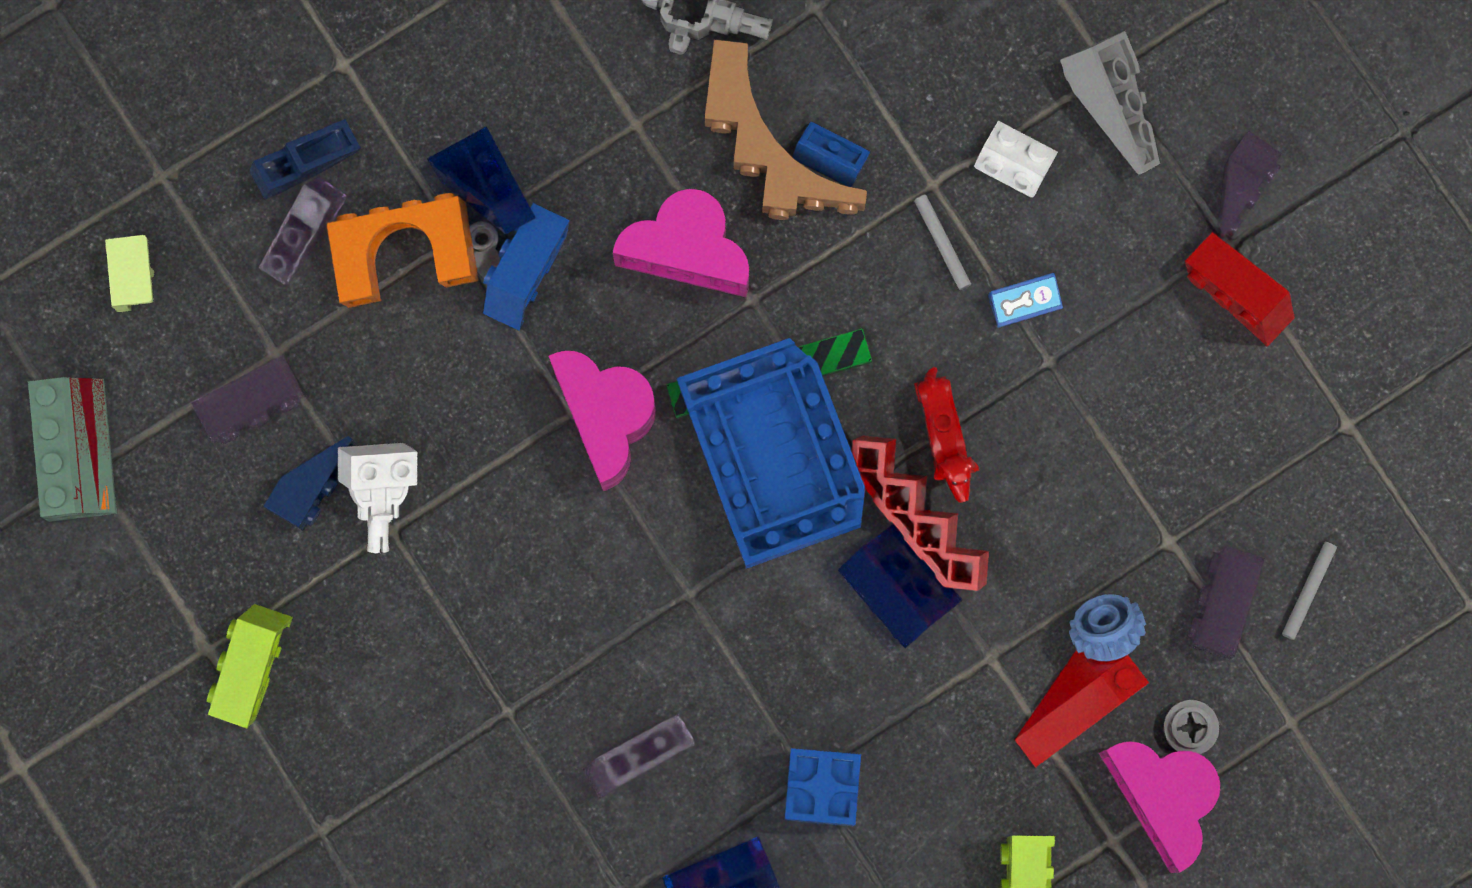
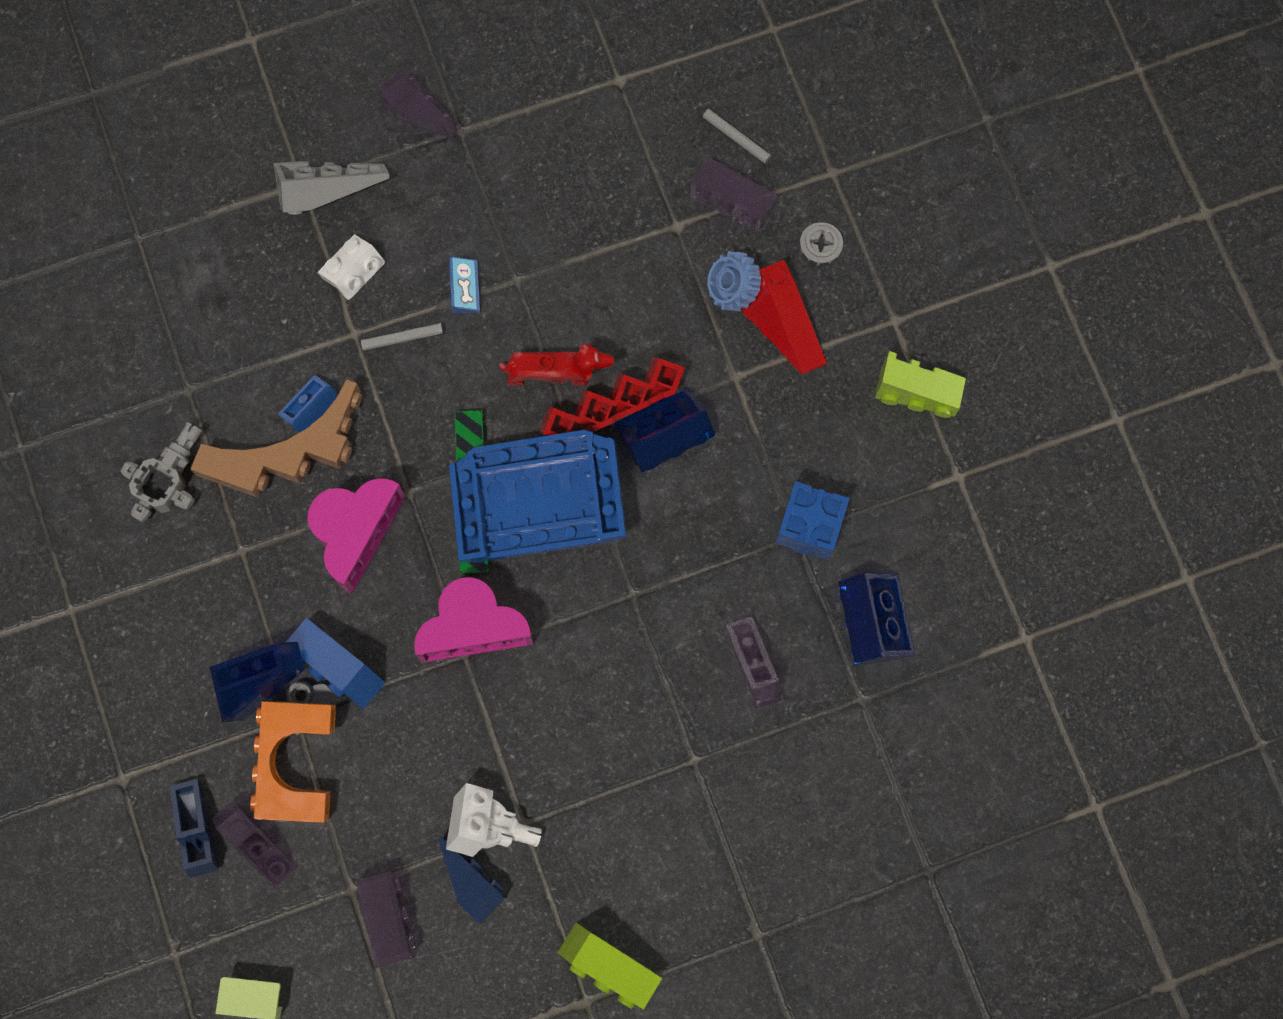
camera: 80 degrees left, 5 degrees down
(1166, 796) = (874, 268): dark pink brick -> none
(1241, 288) = (496, 125): red wedge -> none

